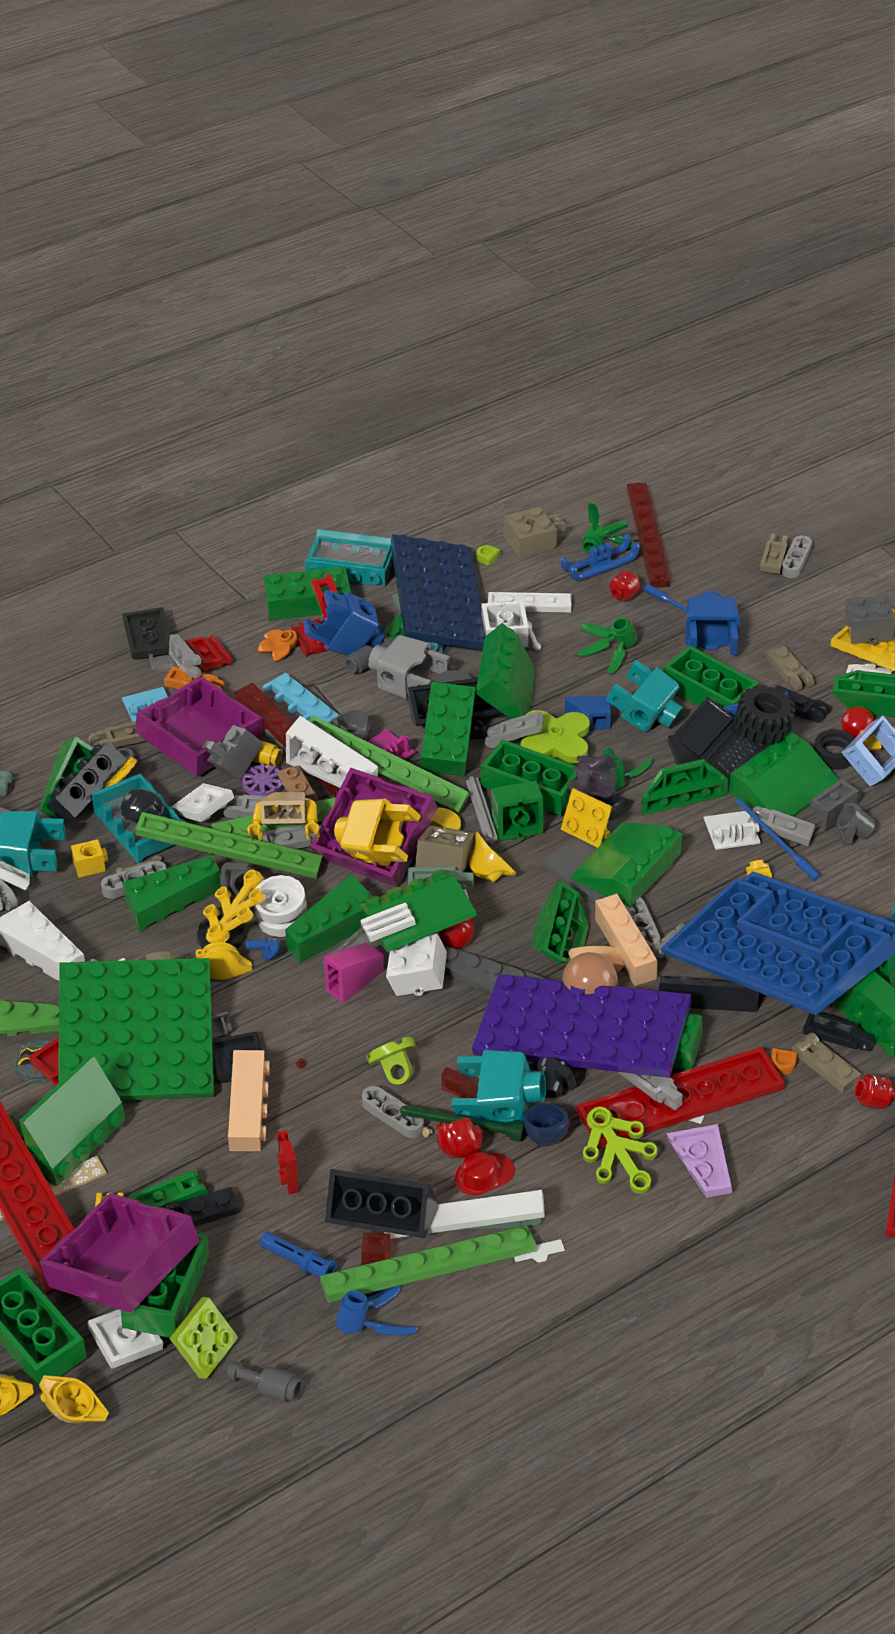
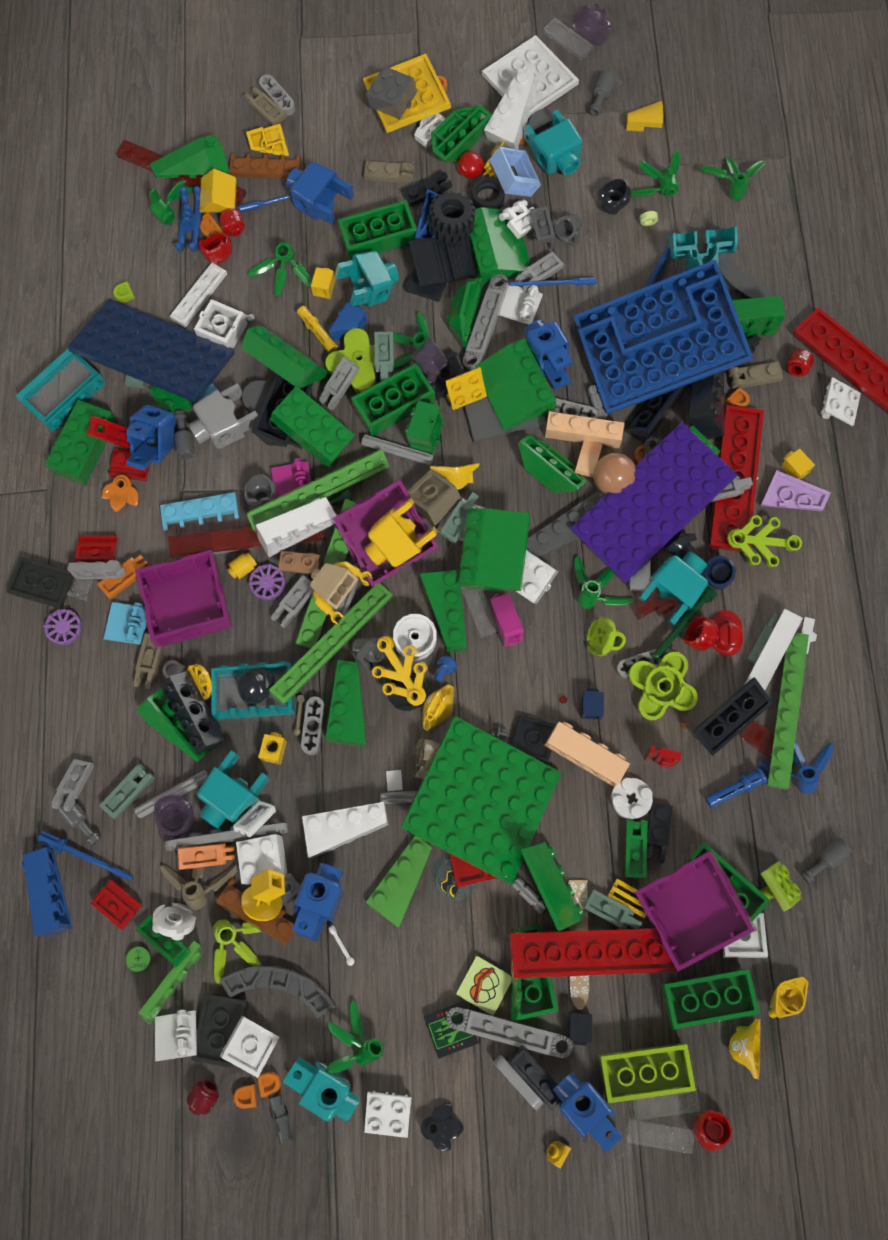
camera: 55 degrees left, 30 degrees up
(81, 1197) = (611, 911): none -> sand green hinge
(114, 667) = (63, 627): none -> medium lavender wheel
(203, 802) = (268, 637): white plate -> none
(224, 1156) = (635, 809): none -> white plate
(234, 753) = (236, 588): dark grey hinge -> none
(309, 1084) = (592, 704): none -> dark blue brick
(374, 1134) = (676, 692): none -> lime plant
(387, 919) = (503, 559): white tile -> none
(437, 1020) = (592, 589): none -> green plant
(446, 819) = (389, 477): yellow tile -> none
(532, 531) = (125, 248): dark tan hinge -> none
(566, 689) = (312, 323): none -> yellow pin
(573, 742) = (384, 353): none -> sand green hinge
(585, 587) = (216, 248): none -> red hair
(604, 577) = (209, 225): none -> orange tile
(615, 673) = (323, 282): none -> yellow brick
(647, 560) = (217, 192): none -> yellow slope
(671, 533) = (192, 159): none -> green wedge
(686, 810) = (485, 322): none -> light grey plate
(686, 852) = (552, 342): none -> blue piece
(704, 580) = (264, 167): none -> dark orange hinge
(740, 572) = (268, 140): none -> yellow slope
(742, 1144) = (797, 464): none -> yellow brick
(746, 1023) = (707, 406): none -> black wedge
(759, 867) = (568, 311): yellow plate -> none
(818, 781) = (518, 224): none -> white plate
(860, 1153) = (840, 402): none -> white hinge

